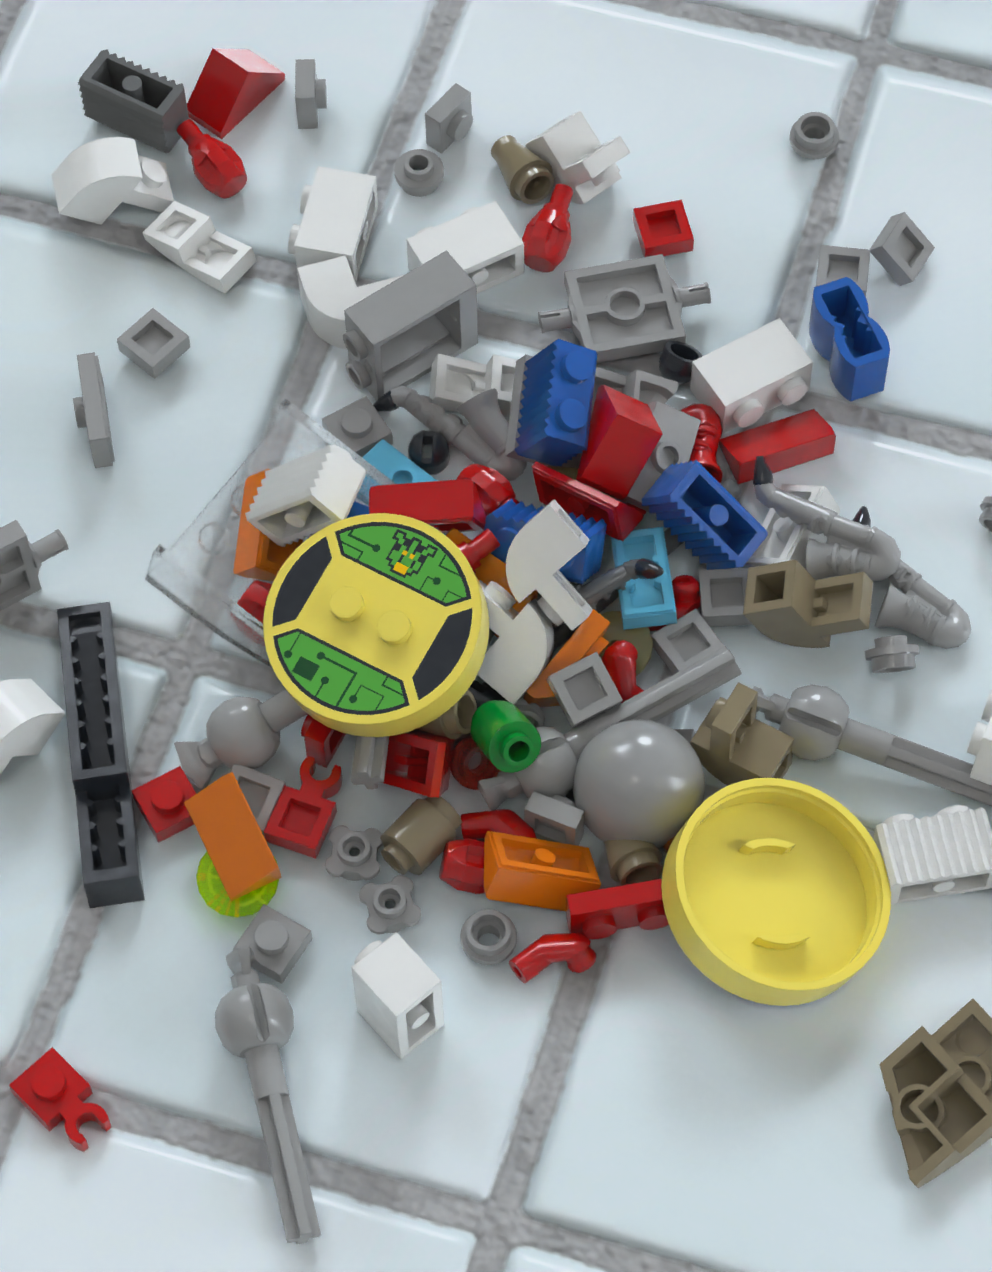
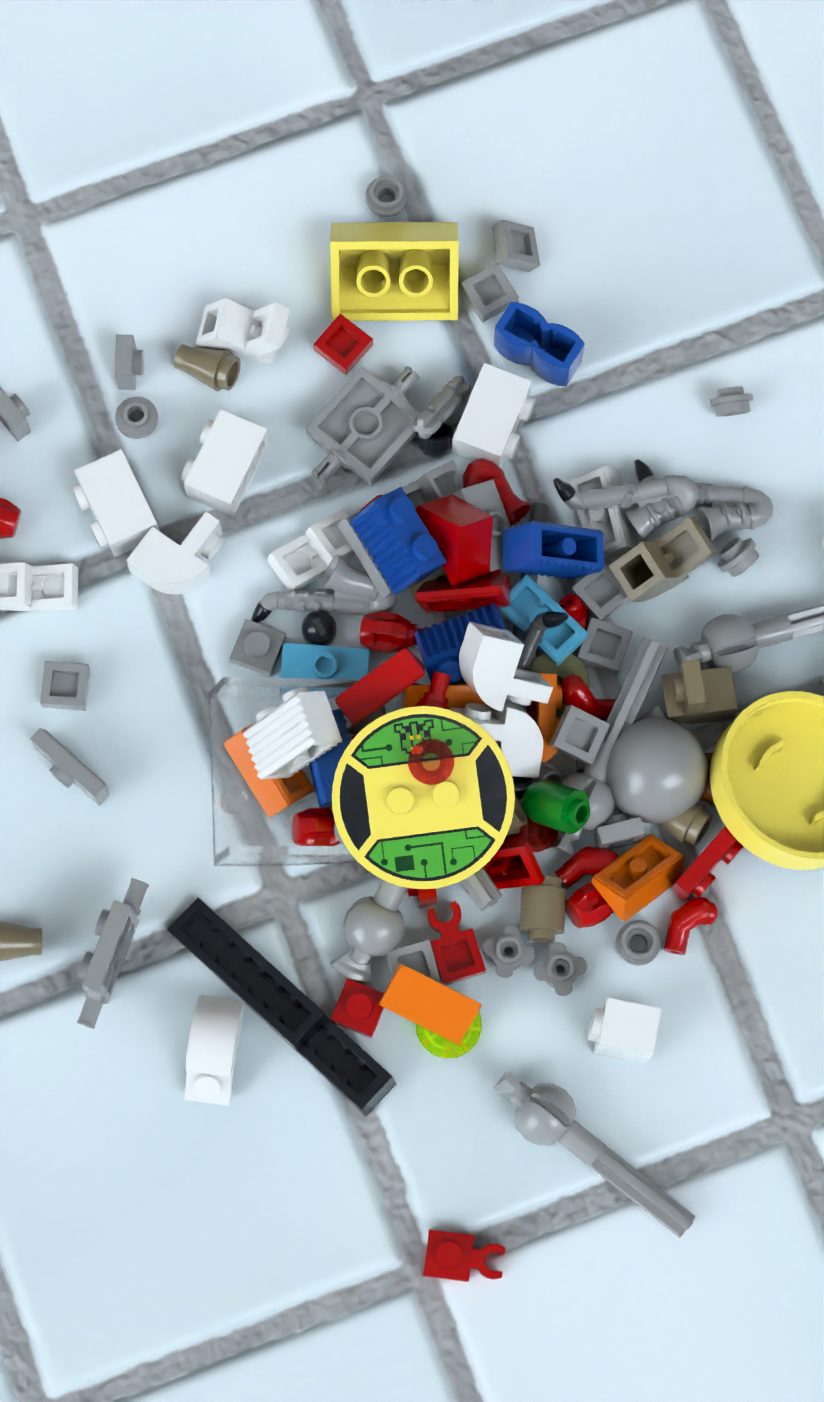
camera: 40 degrees left, 15 degrees up
(275, 943) = (506, 1051): light grey plate -> none
(400, 568) = (426, 747): none -> clear red plate
(409, 322) = (242, 549): light grey window -> none
(549, 232) = (268, 402): red piece -> none
(702, 333) = (441, 407): none -> light grey axle
(765, 198) = (394, 271): none -> light yellow slope
(781, 442) = (544, 453): red slope -> none

